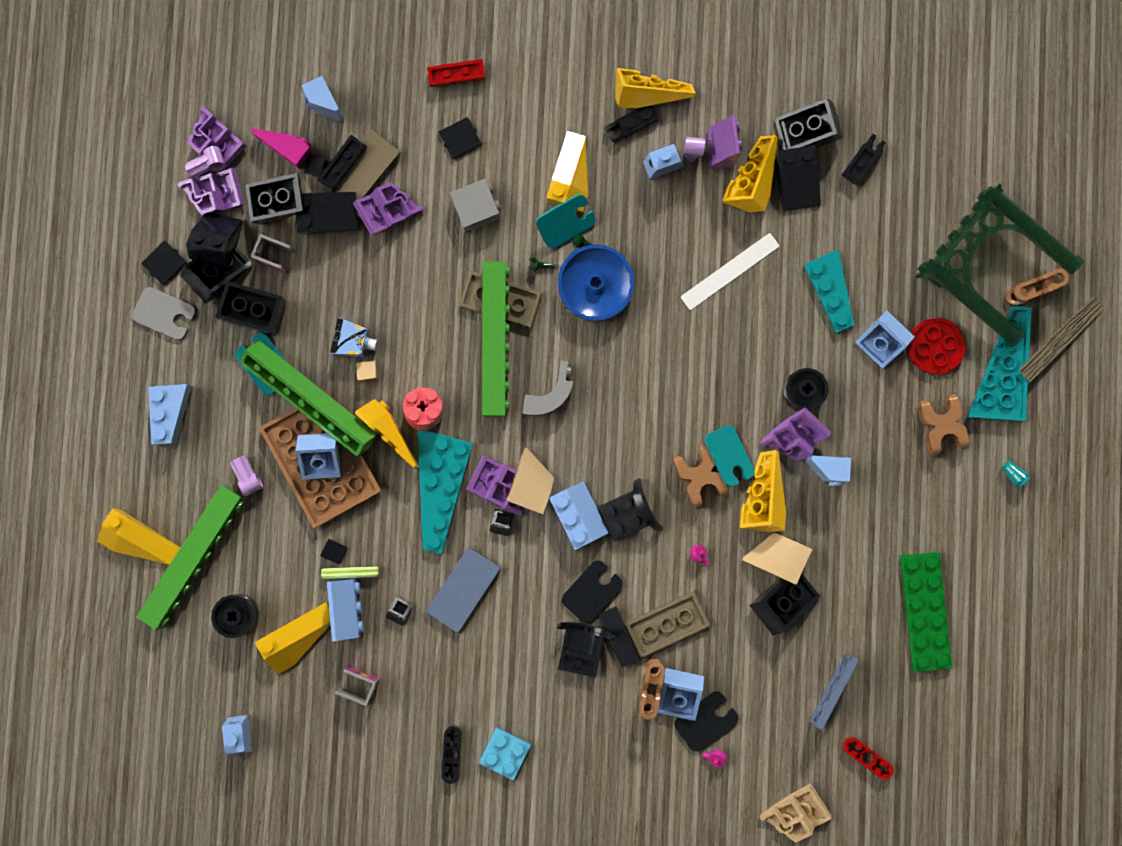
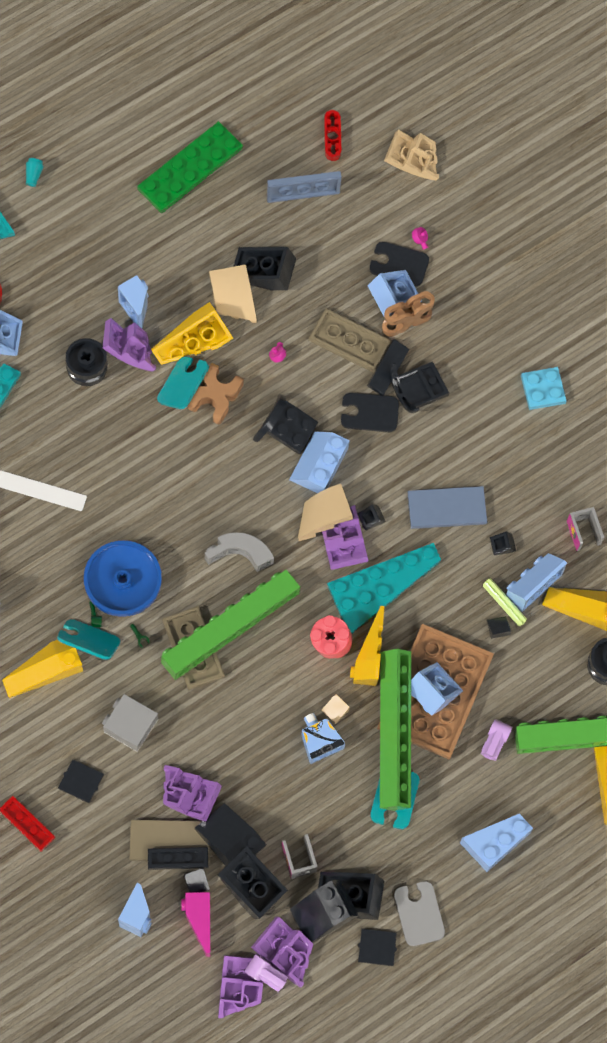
camera: 135 degrees left, 15 degrees down
(250, 308) = (359, 837): black brick -> none
(445, 768) = (580, 417): black beam -> none
(943, 424) = (34, 246): medium nougat piece -> none

